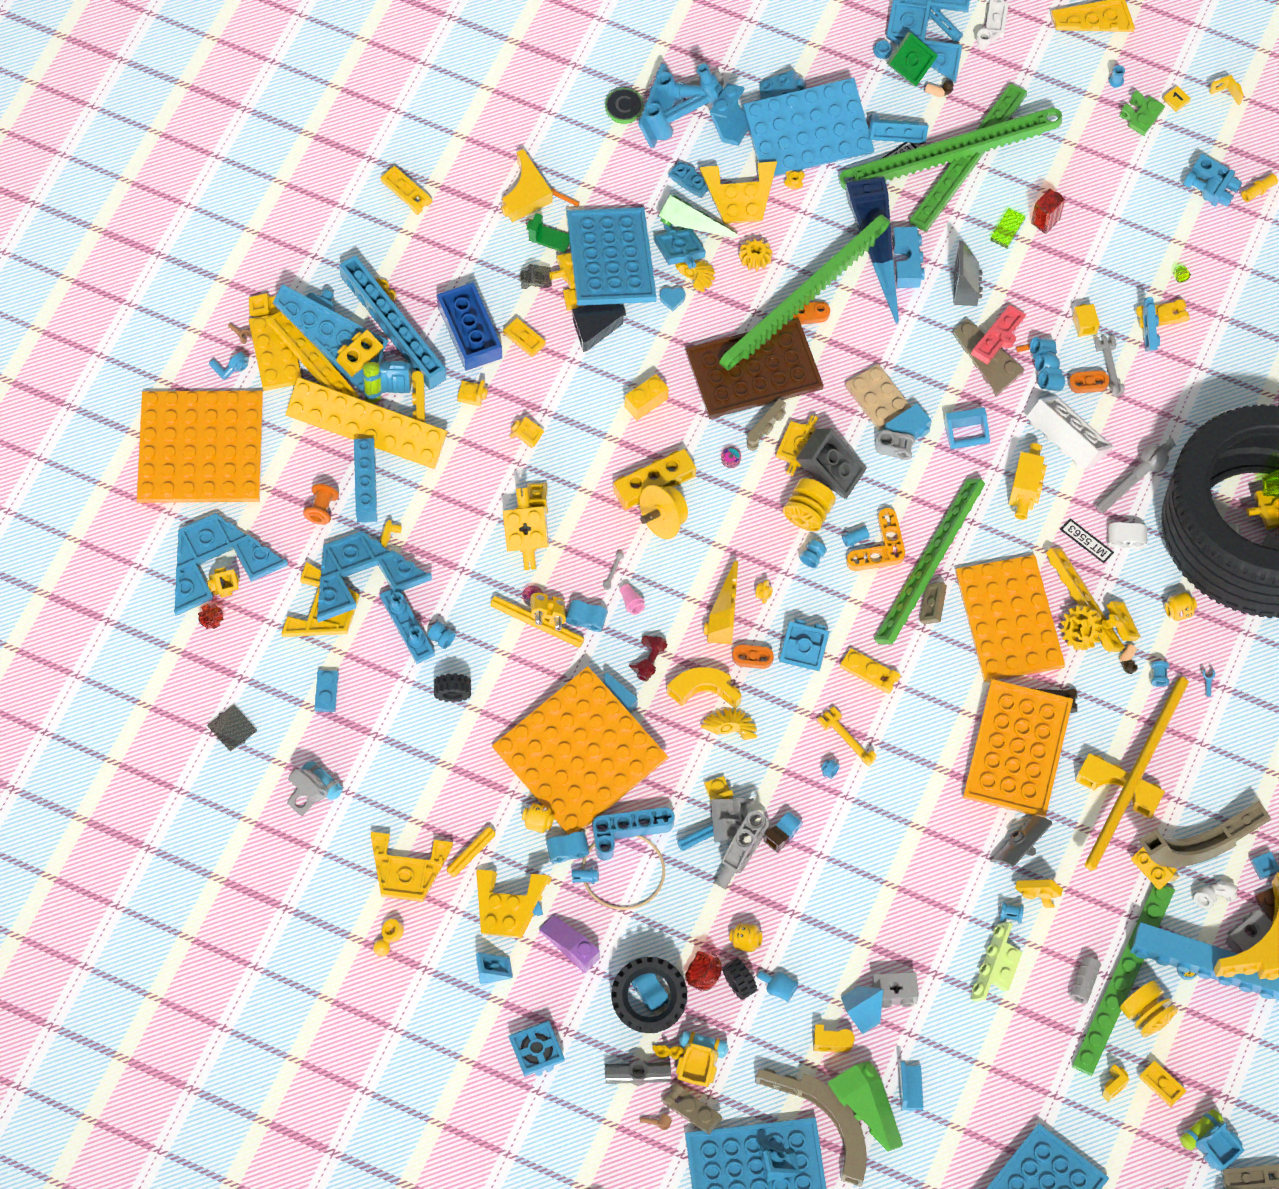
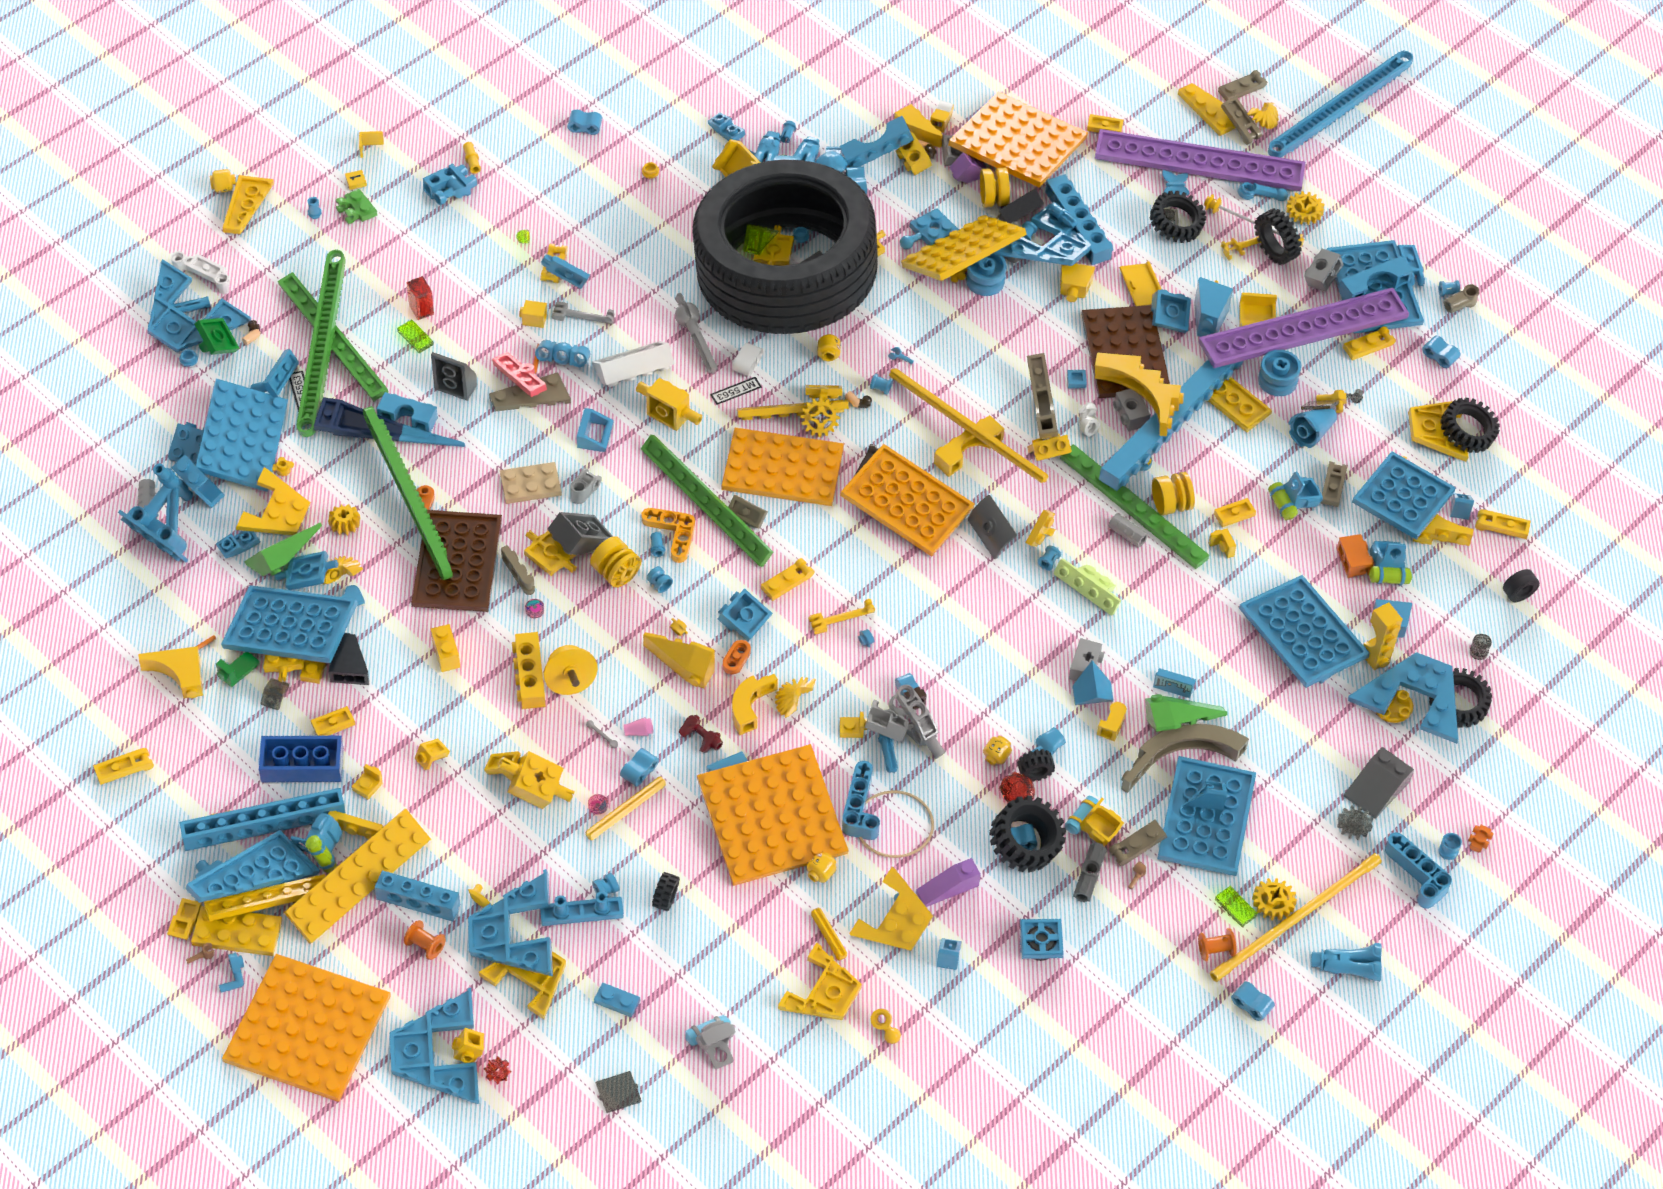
camera: 70 degrees left, 10 degrees down
(361, 355) = (286, 852): yellow brick -> none
(550, 609) = (623, 792): yellow piece -> none
(567, 847) = (858, 855): dark azure axle -> none
(589, 875) = (892, 847): dark azure pin -> none
(624, 105) = (132, 566): black tile -> none
(663, 1051) = (1082, 838): yellow piece -> none
(912, 422) = (569, 465): dark azure slope -> none
(1087, 380) = (590, 336): orange plate -> none

